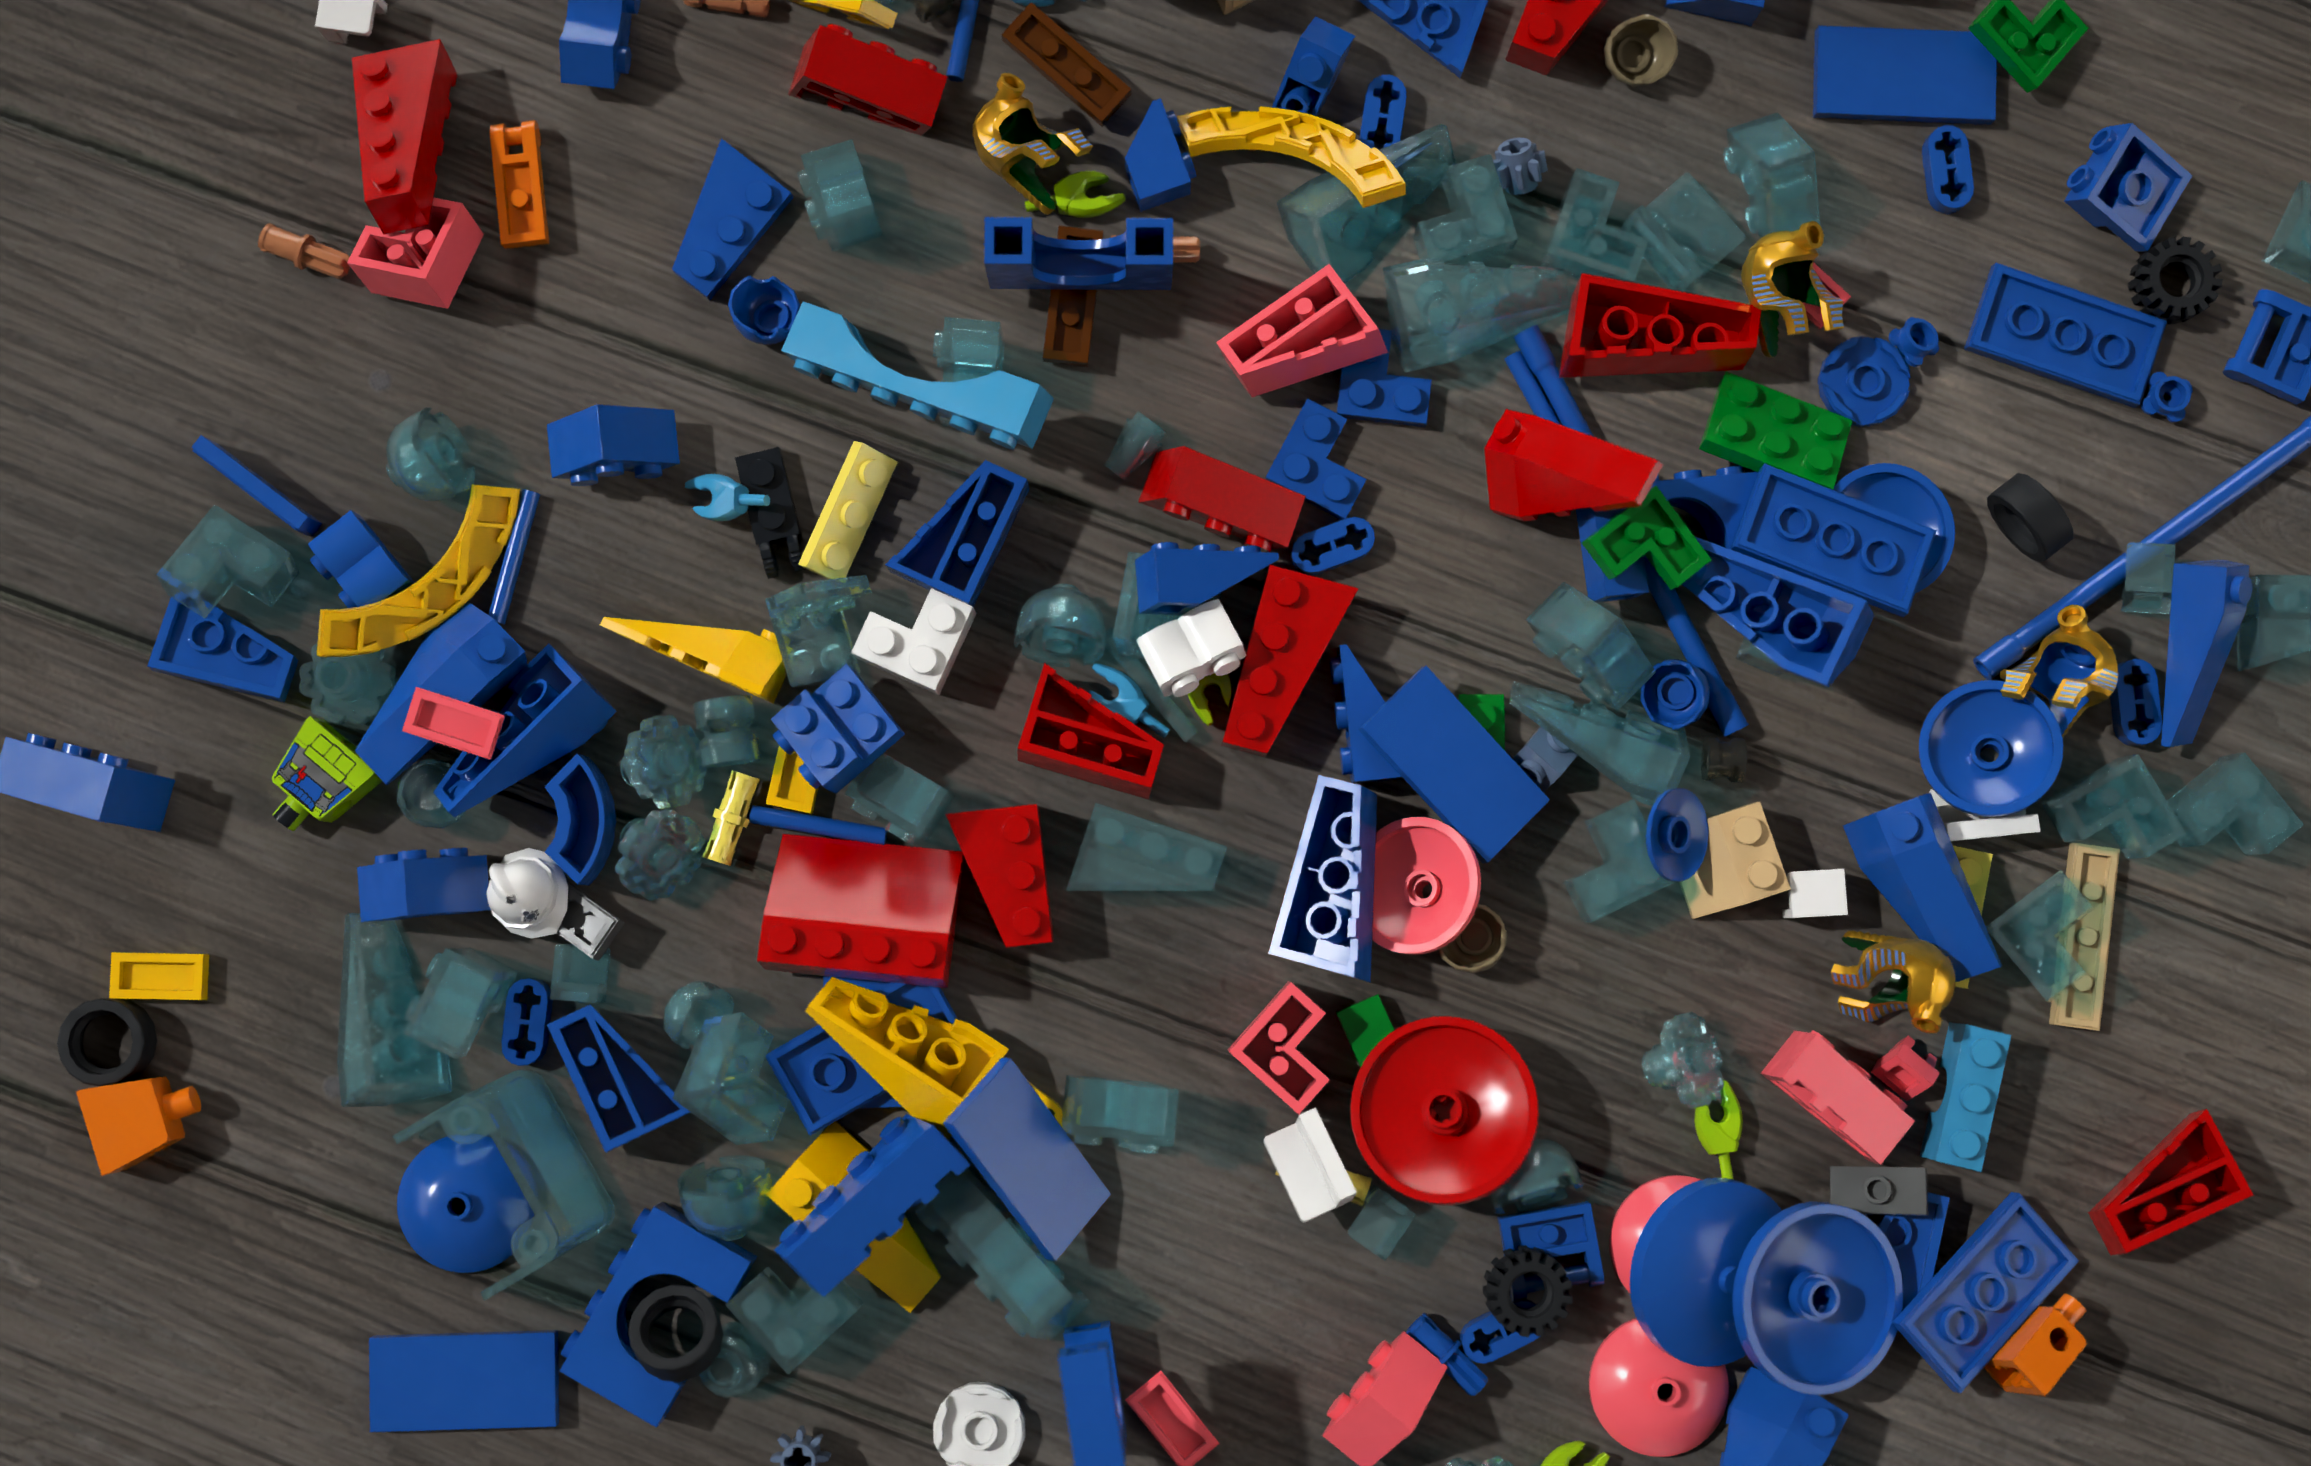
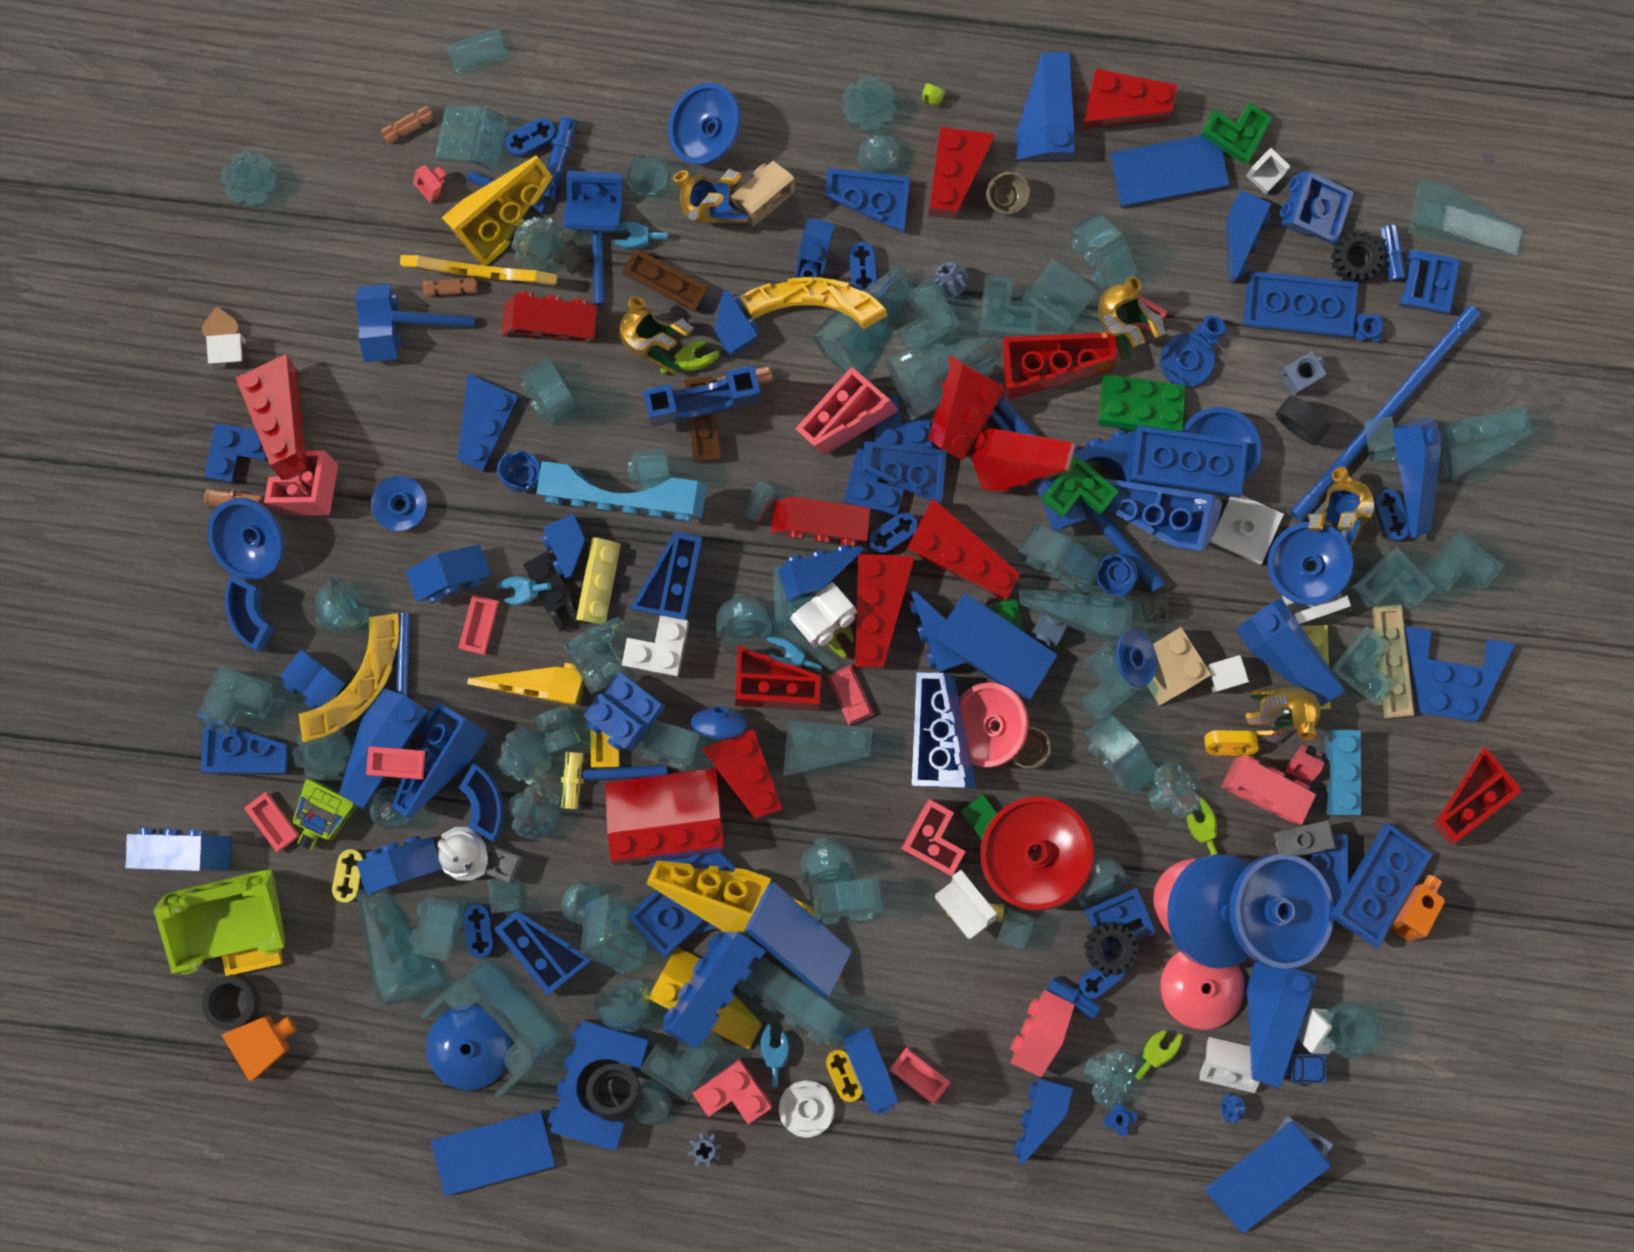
camera: 15 degrees left, 0 degrees up
(118, 908) = (220, 920): none -> lime windscreen
(242, 771) = (272, 822): none -> coral tile
(256, 486) = (238, 648): blue tile -> none
(278, 434) = (246, 615): none -> blue brick
(307, 314) = (236, 545): none -> blue dish
(313, 172) = (227, 447): none -> blue plate
(332, 881) = (342, 873): none -> light yellow beam
(519, 185) = (353, 430): orange plate -> none
(552, 298) = (389, 493): none -> blue dish
(643, 537) = (478, 624): none -> coral tile
(684, 39) = (432, 319): none -> blue bar
(813, 442) = (568, 544): none -> blue slope
(877, 1368) = (736, 1085): none -> coral brick
(946, 1334) = (773, 1056): none -> dark azure hand
(984, 781) = (719, 723): none -> blue dish
(1040, 1391) = (837, 1077): none -> yellow beam
(1104, 1044) = (827, 862): none -> clear light blue cylinder
(1204, 786) = (850, 695): none -> coral tile
(1381, 447) = (908, 467): none -> blue wing
(1429, 597) = (961, 553): none -> red wedge
(1493, 370) = (964, 407): none -> red wedge
(1616, 982) = (1121, 754): none -> clear light blue brick
(1795, 1006) = (1231, 743): none -> yellow beam
(1899, 670) = (1246, 528): none -> white plate
(1958, 169) = (1201, 222): blue beam -> none
(2001, 189) = (1241, 229): none -> blue slope
(2027, 445) = (1295, 381): none -> sand blue brick
(2063, 111) = (1268, 171): none -> white panel
(2168, 1000) = (1453, 688): none -> blue wing
(2235, 285) = (1393, 252): none -> blue axle

